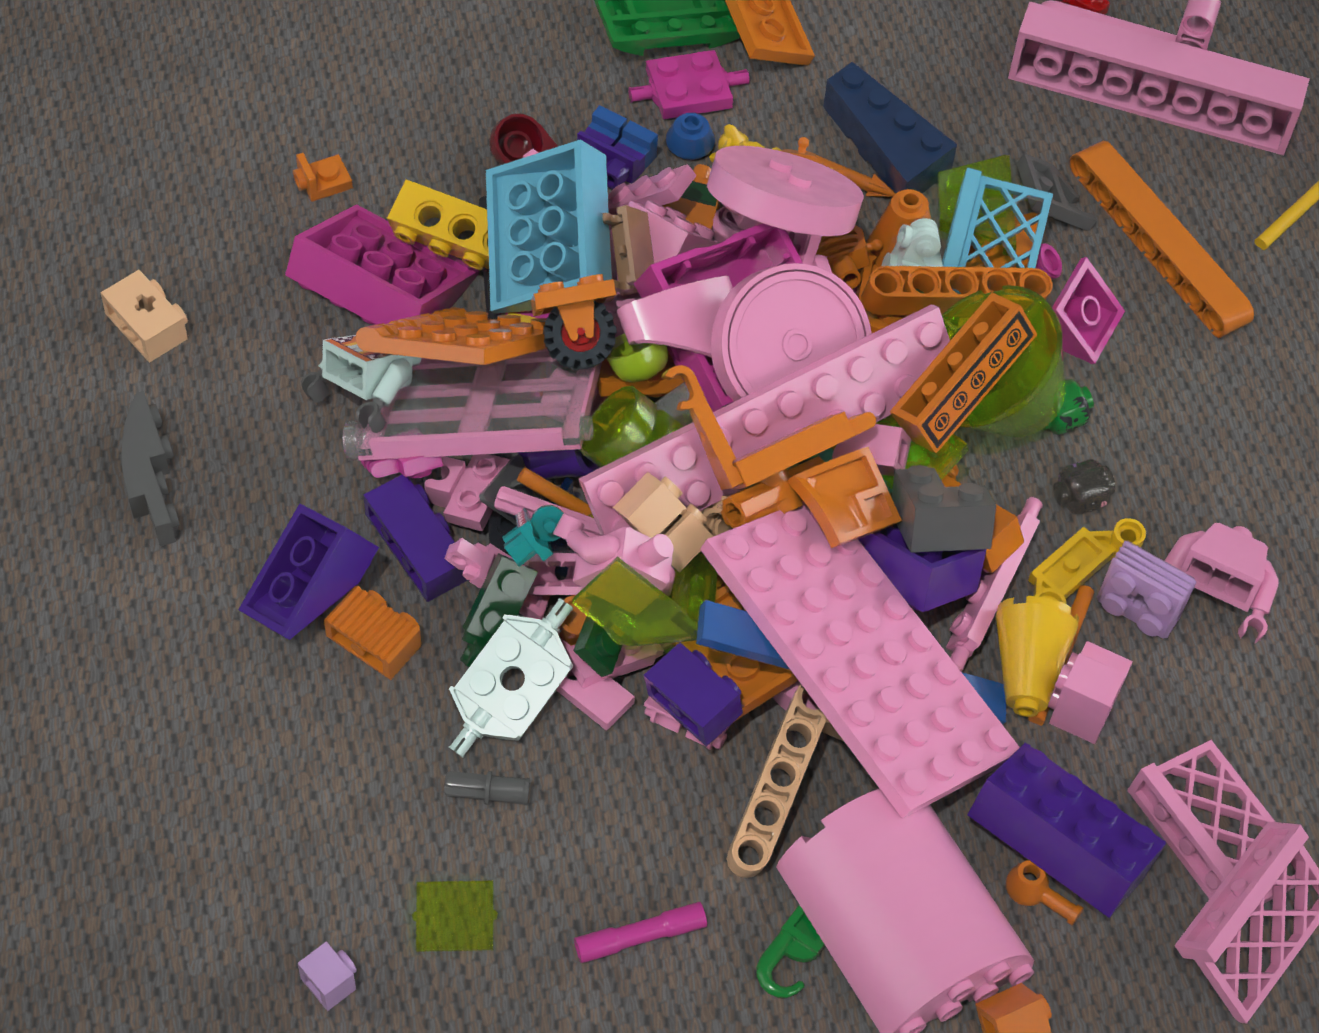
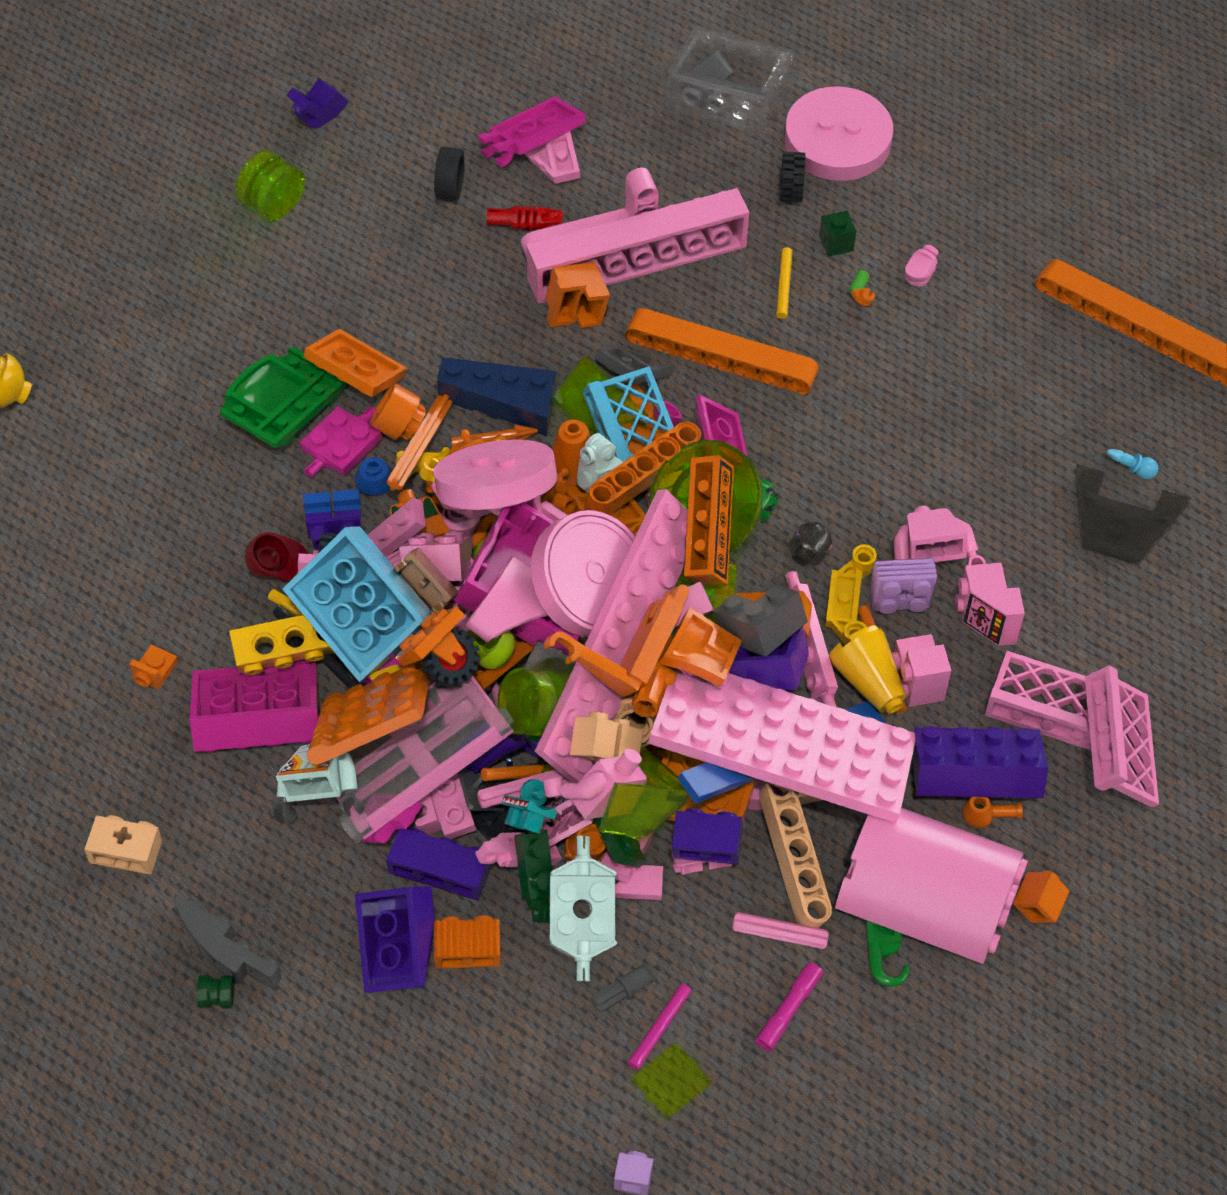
camera: 35 degrees left, 0 degrees up
(101, 507) = (215, 991): none -> dark green wheel
(490, 853) = (659, 1027): none -> dark pink piece
(702, 849) = (780, 930): none -> bright pink axle
(759, 128) = (419, 442): none -> orange axle
(763, 89) = (398, 413): none -> orange piece
(1046, 88) = (576, 295): none -> orange plate
(1226, 672) = (989, 604): none -> bright pink piece

